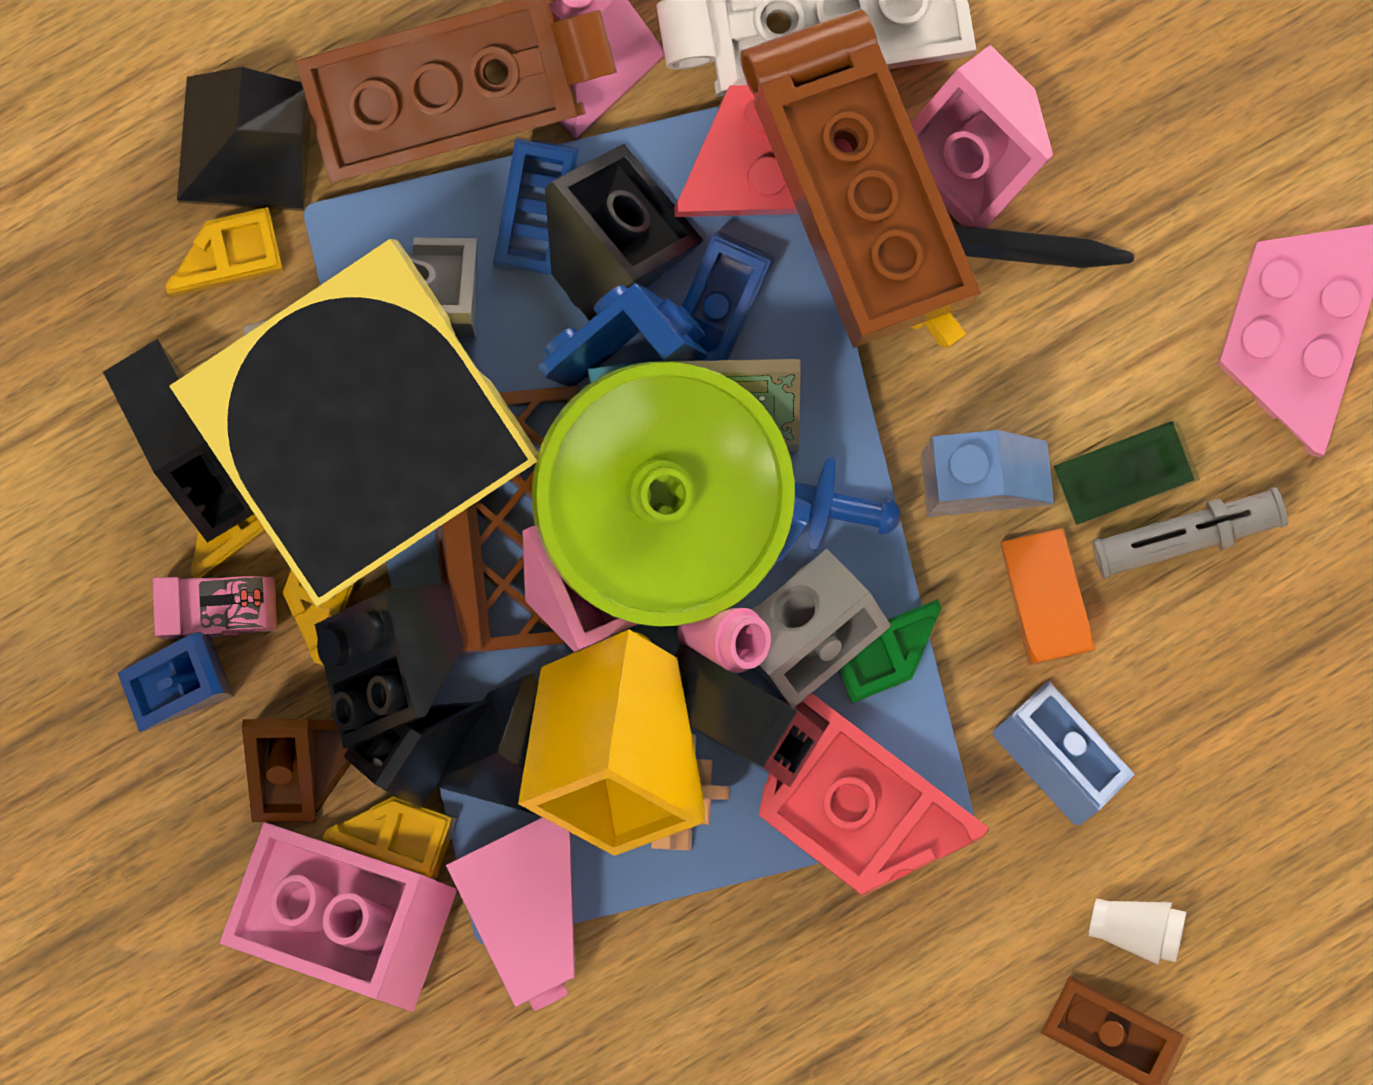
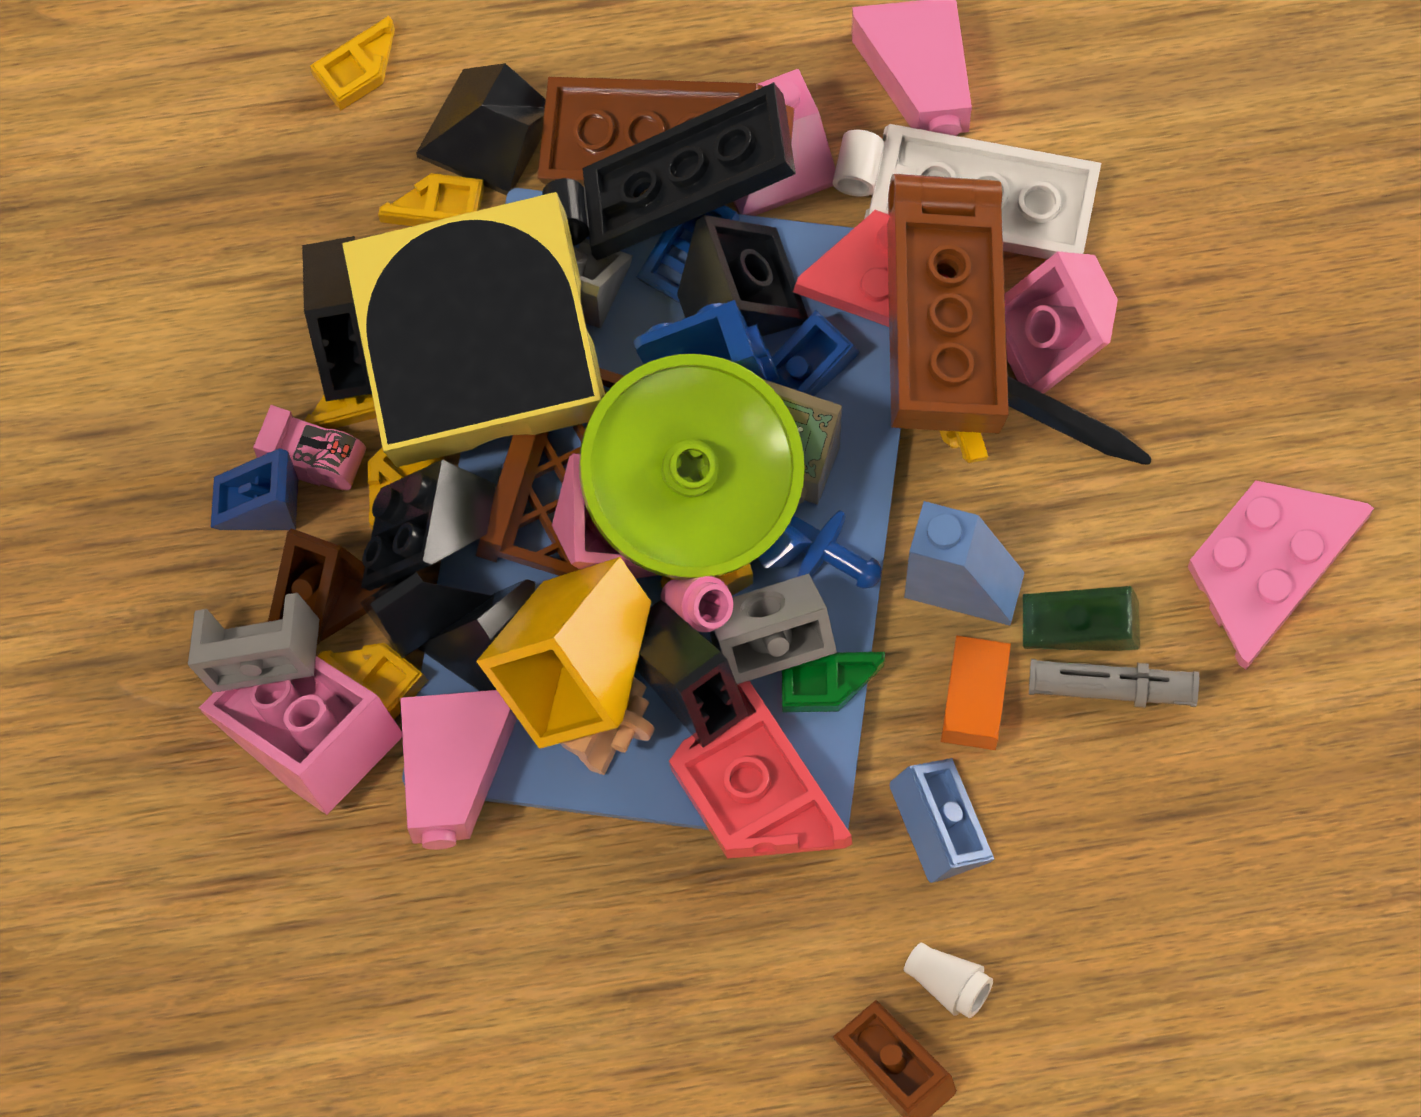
camera: 30 degrees right, 15 degrees down
(62, 117) = (356, 65): none -> yellow tile
(255, 860) = (256, 651): none -> light grey panel
(520, 126) = (685, 172): none -> black hinge

